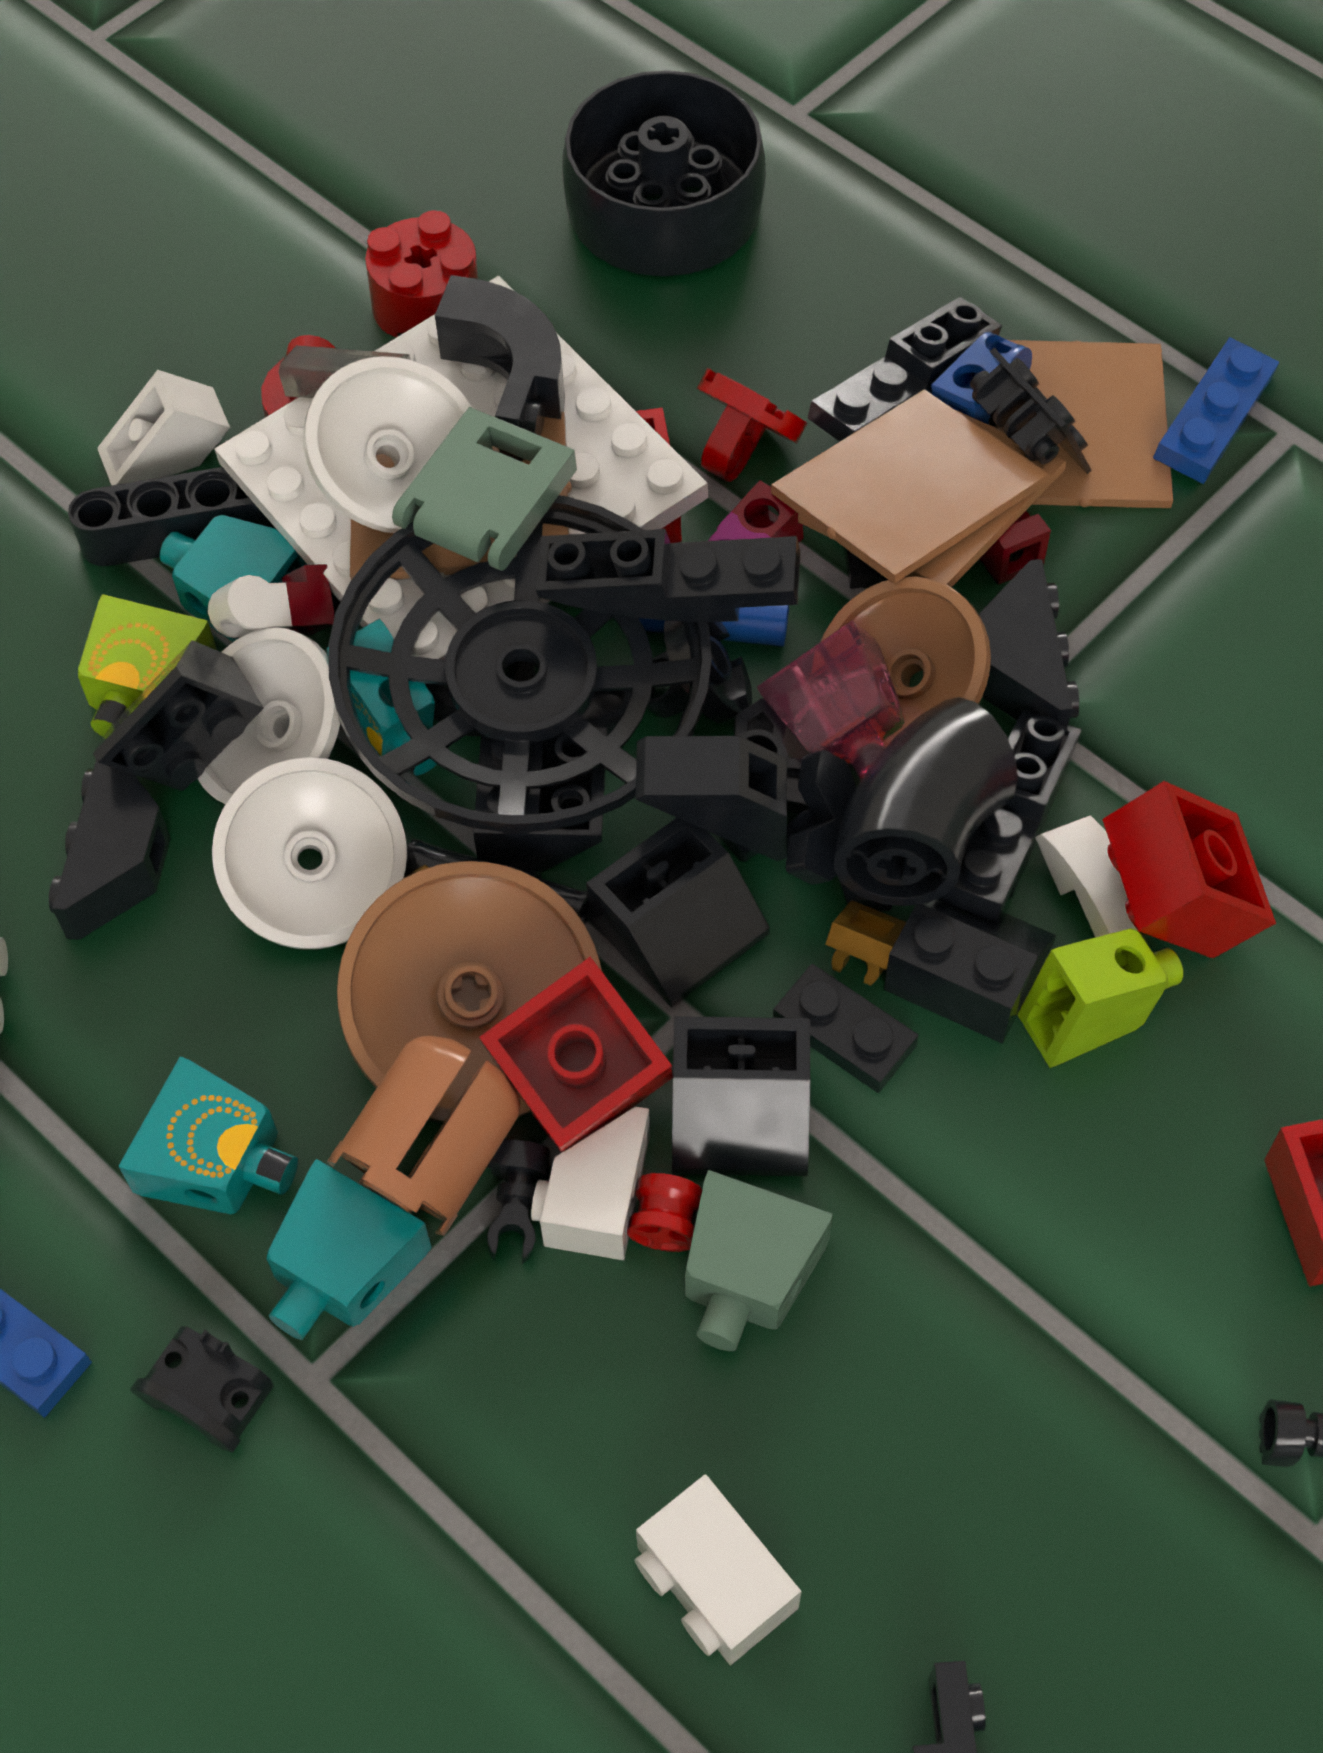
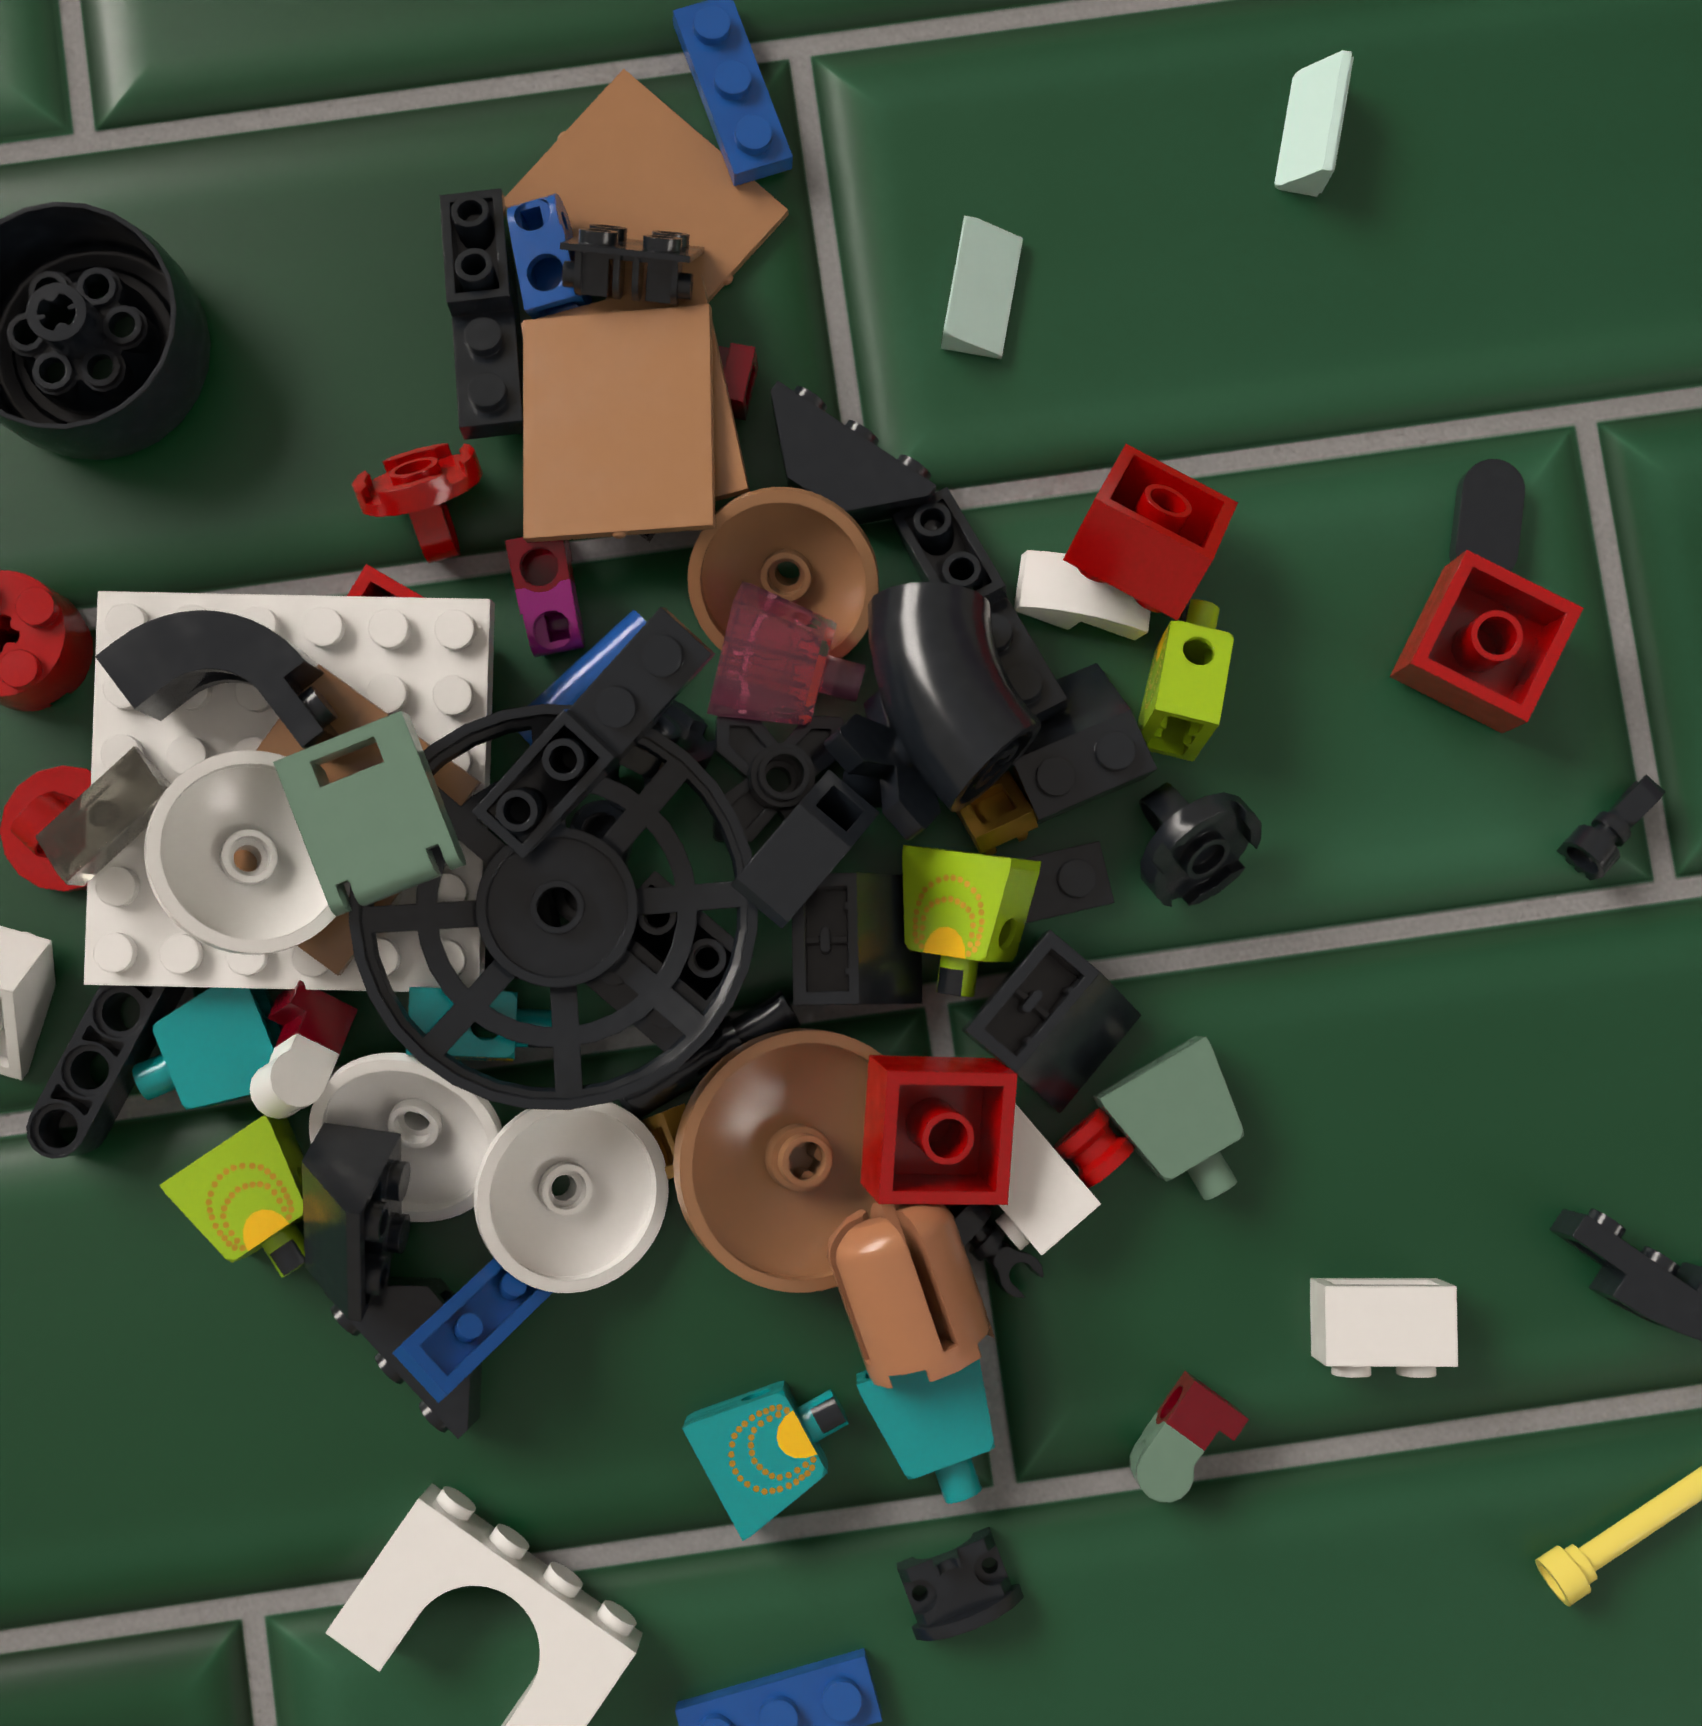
camera: 55 degrees left, 25 degrees up
(150, 845) = (467, 1329): none -> blue plate
(474, 1469) = (1179, 1436): none -> leg
(773, 962) = (965, 910): none -> lime torso
(980, 1097) = (1195, 843): none -> black tile
(1247, 651) = (981, 289): none -> light aqua slope

